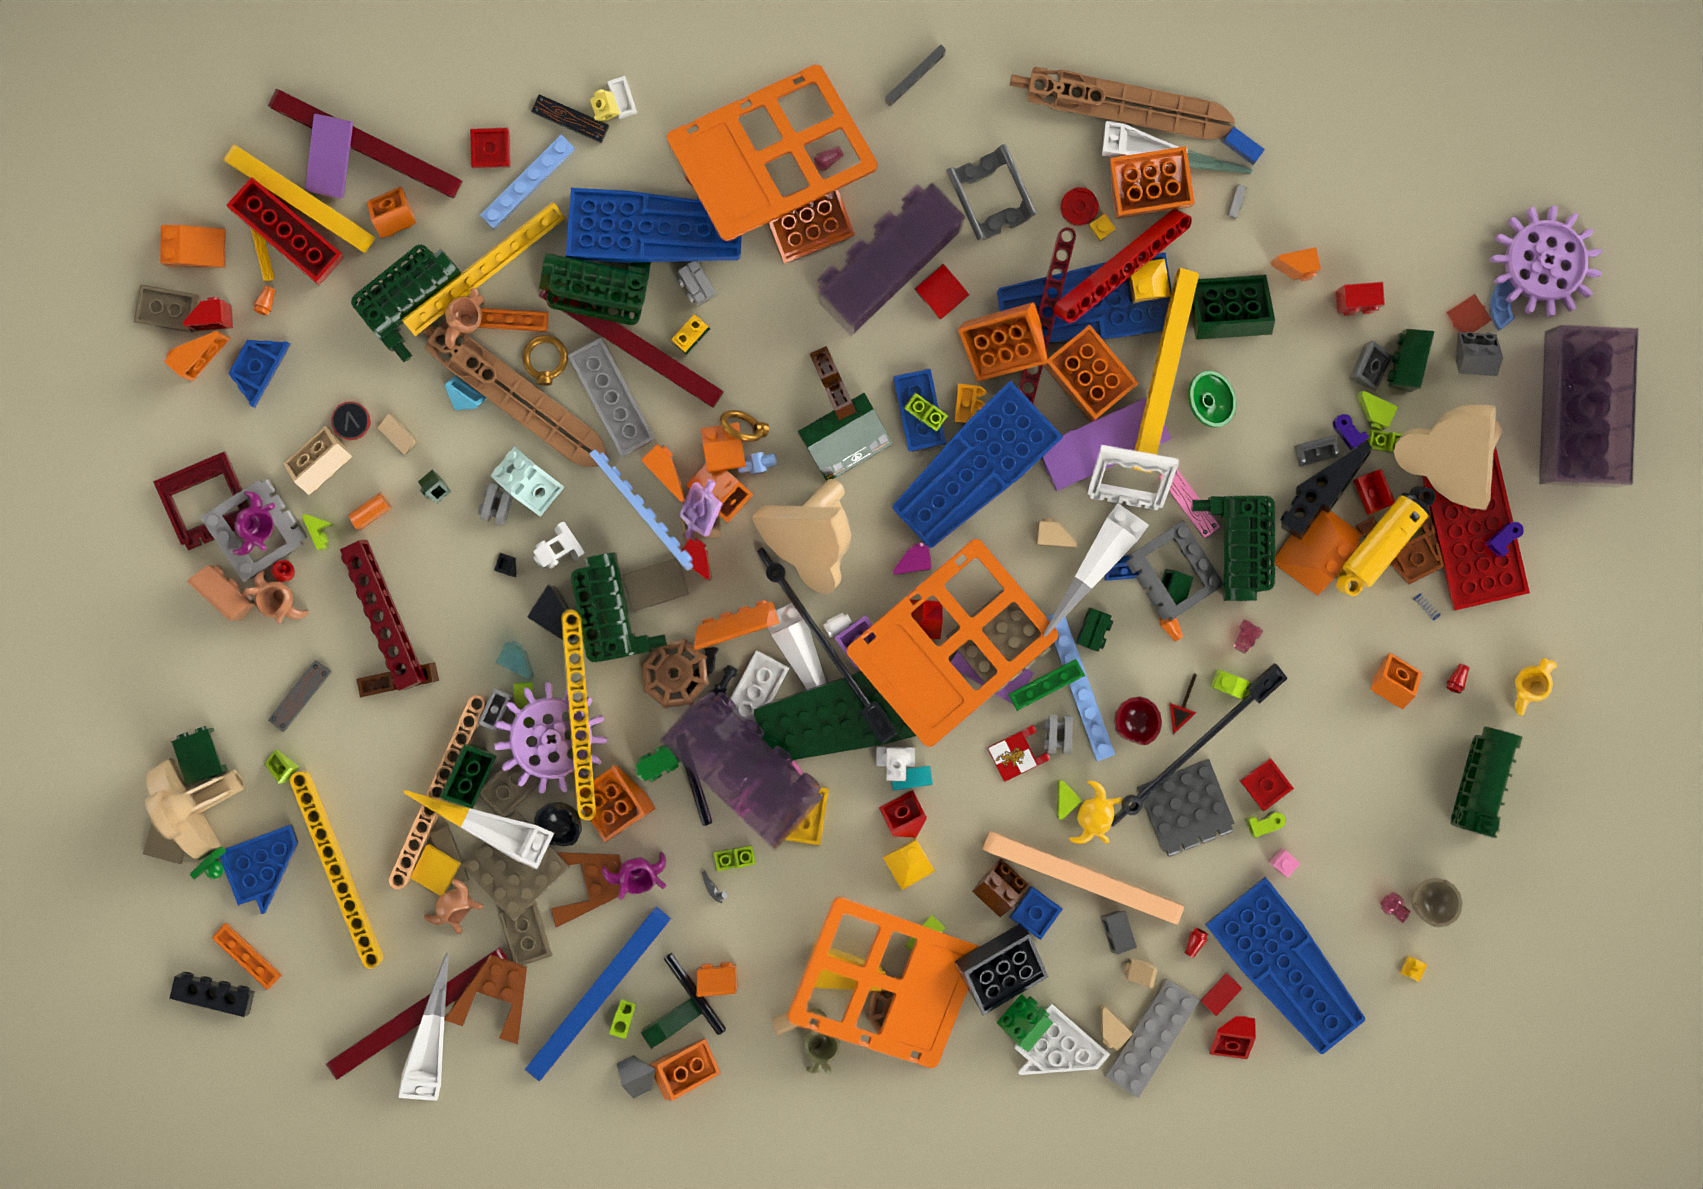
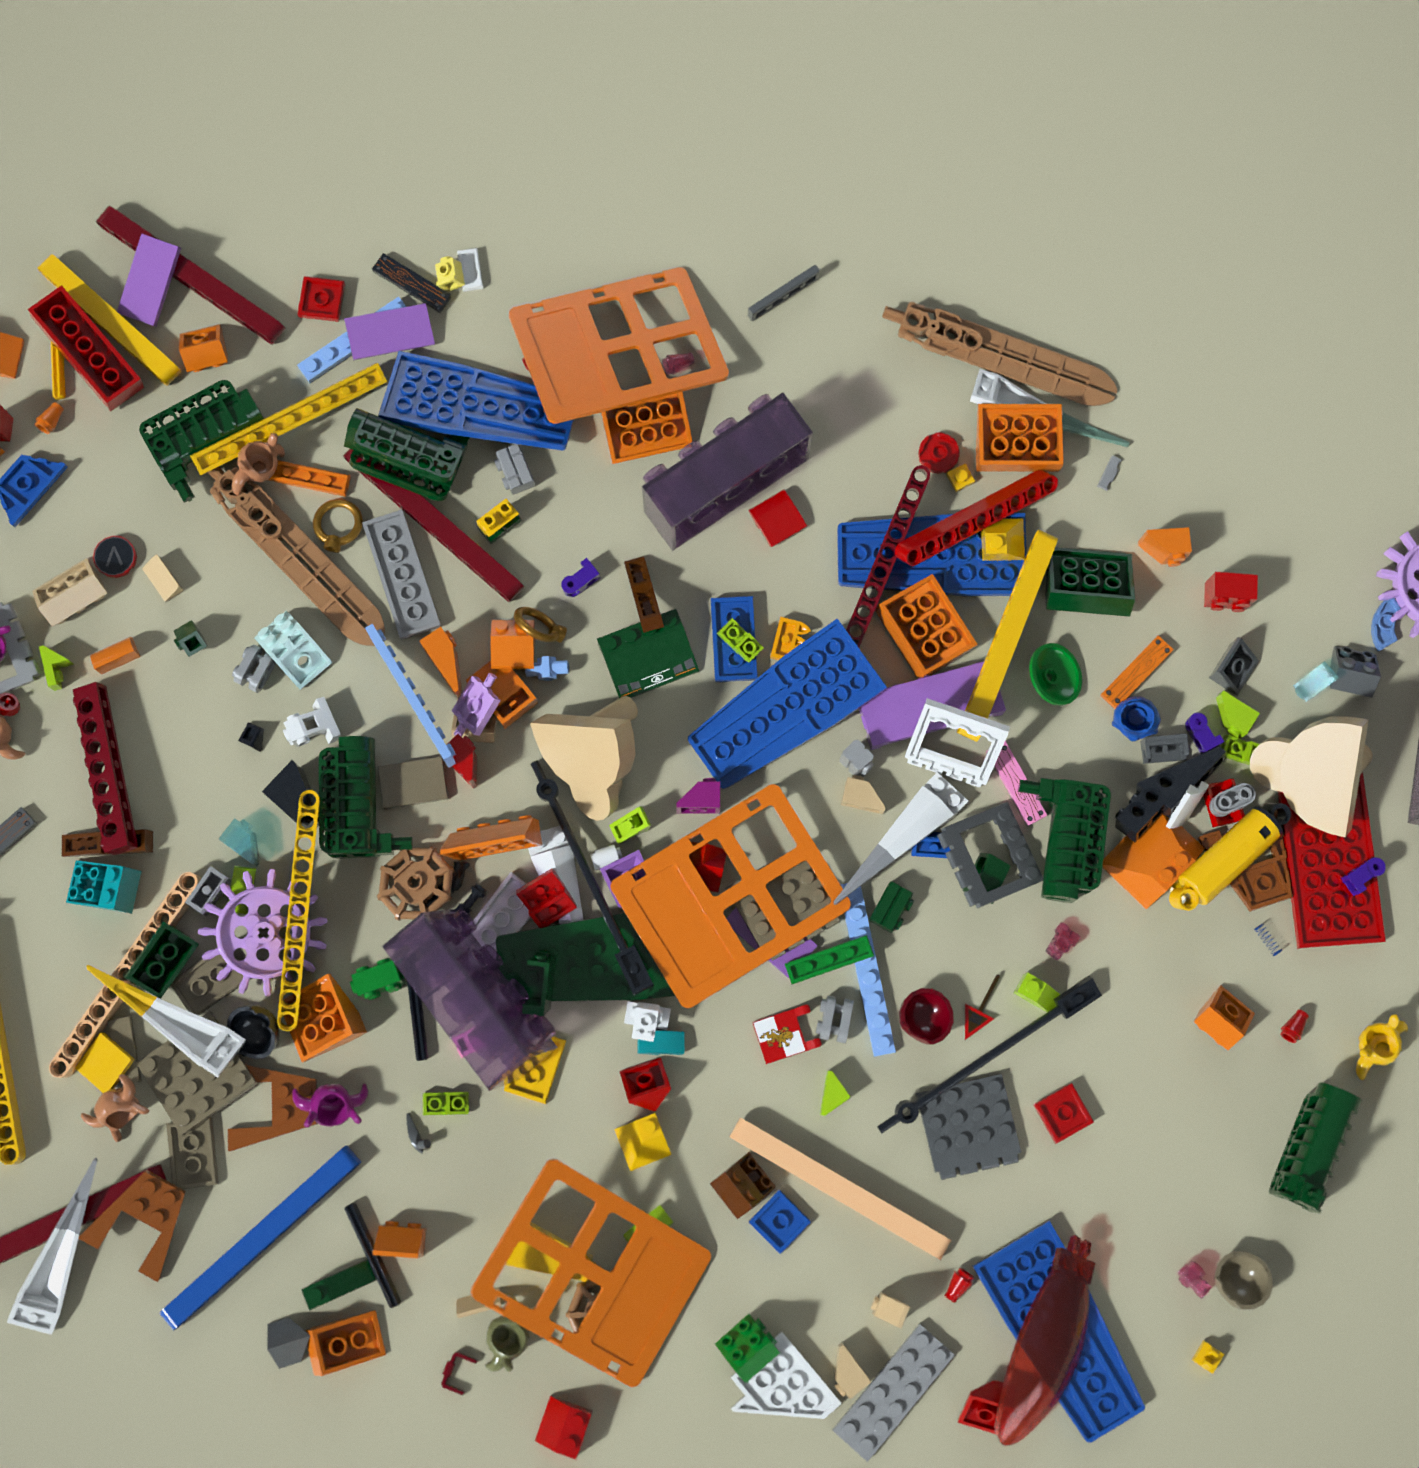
camera: 10 degrees right, 10 degrees down
(402, 718) = (104, 886): none -> teal slope
(463, 395) = (241, 547): medium azure slope -> none
(559, 170) = (389, 331): none -> medium lavender tile
(622, 1019) = (284, 1271): lime leg -> none
(774, 377) = (581, 580): none -> dark purple leg
(776, 1075) = (449, 1369): none -> dark red piece
(791, 670) = (546, 898): none -> red slope
(800, 765) = (541, 1006): none -> dark green panel
(854, 593) = (630, 825): none -> lime slope
(880, 1109) = (563, 1427): none -> red slope
(971, 174) = (846, 397): dark grey piece -> none
(1002, 968) = (730, 1280): black slope -> none
(1004, 342) = (837, 578): orange slope -> none
(1046, 504) = (857, 759): none -> light grey brick
(1095, 815) = (864, 1117): yellow piece -> none
(1118, 932) = (871, 1258): dark grey hinge -> none
(1172, 628) = (978, 918): orange cone -> none
(1221, 994) = (980, 1352): red slope -> none
(1243, 146) = (1123, 417): blue slope -> none
(1265, 825) = (1065, 1157): lime leg -> none
(1277, 980) = (1047, 1344): none -> clear red windscreen
(1284, 384) = (1137, 672): none -> orange tile
(1284, 862) = (1073, 1207): bright pink brick -> none
(1291, 431) = (1136, 718): none -> blue helmet
(1342, 501) = (1187, 805): none -> white slope
(1382, 490) = (1232, 800): none -> light grey brick
(1410, 359) = (1278, 665): dark green slope -> none
(1444, 370) = (1315, 682): none -> clear light blue slope
(1469, 315) = (1348, 630): clear red piece -> none

